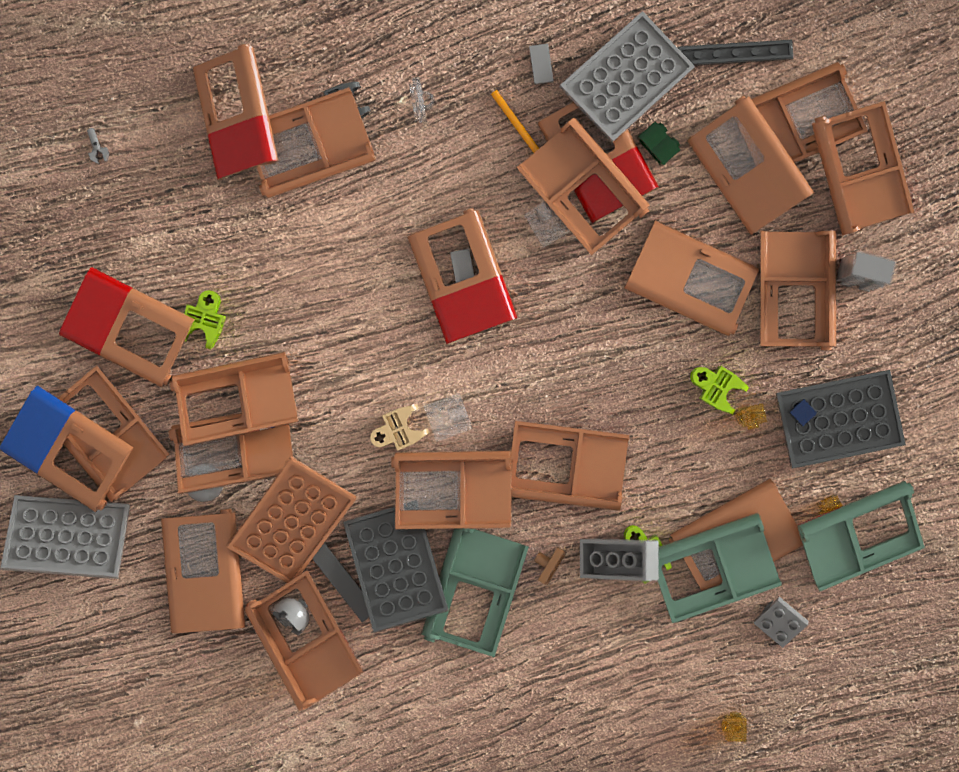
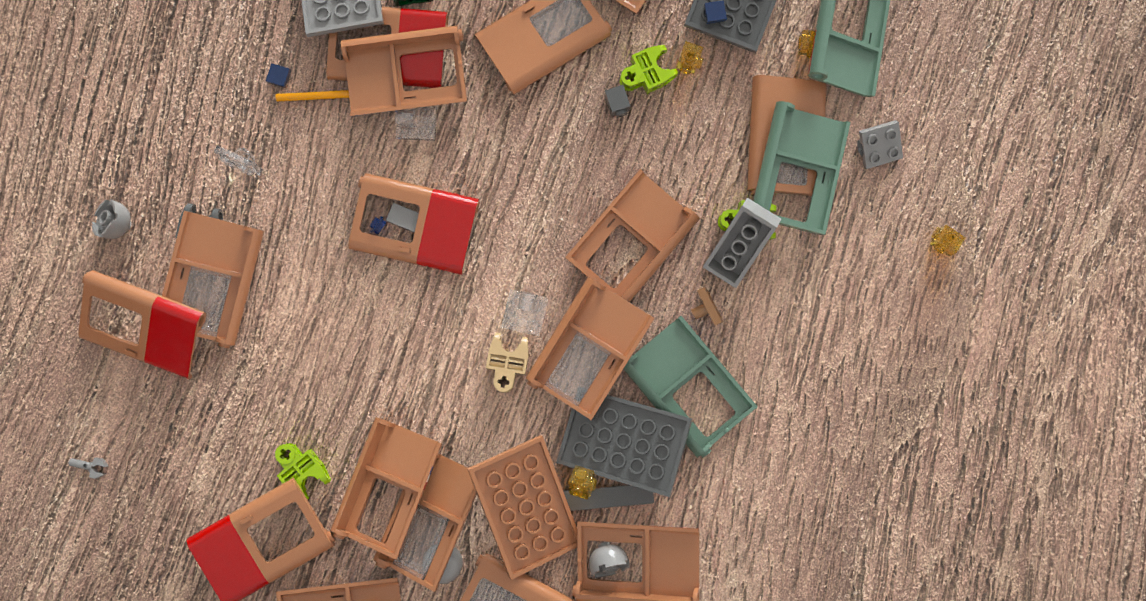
camera: 60 degrees left, 5 degrees down
(303, 29) = (112, 220): none -> light grey cylinder
(340, 553) = (582, 482): none -> clear yellow brick
(441, 248) = (377, 225): none -> clear blue plate
(513, 81) = (278, 75): none -> dark blue tile
(541, 64) = (280, 43): light grey tile -> none
(674, 378) = (617, 101): none -> dark grey brick

